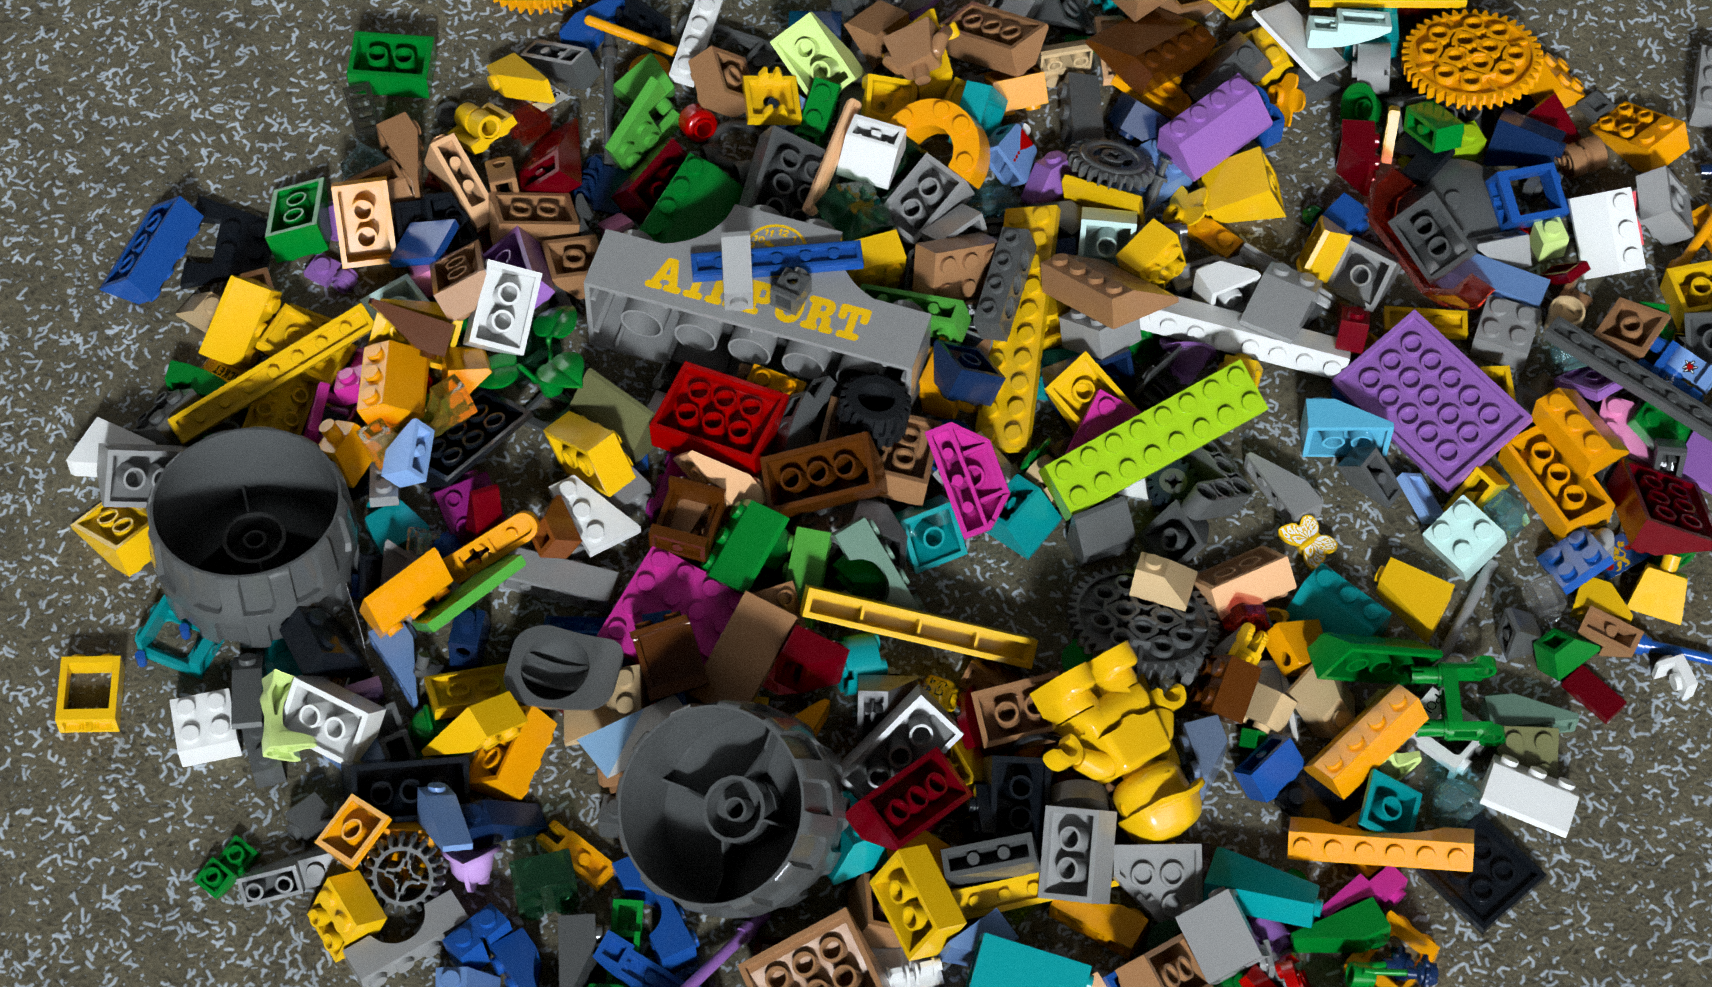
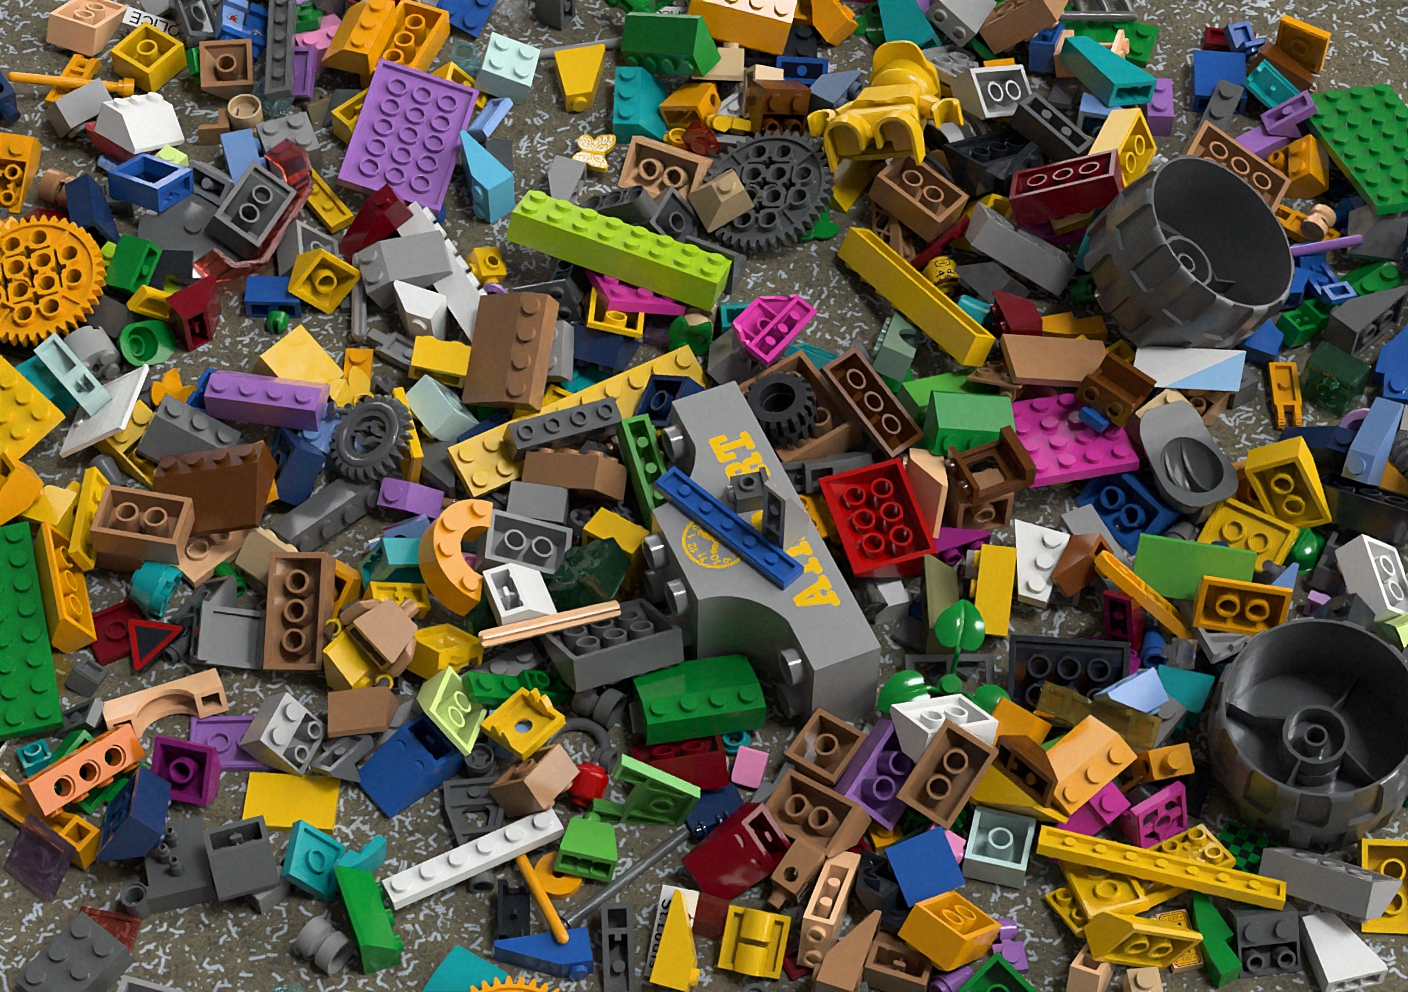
camera: 130 degrees left, 5 degrees down
(1565, 272) = (202, 136): dark red tile -> none

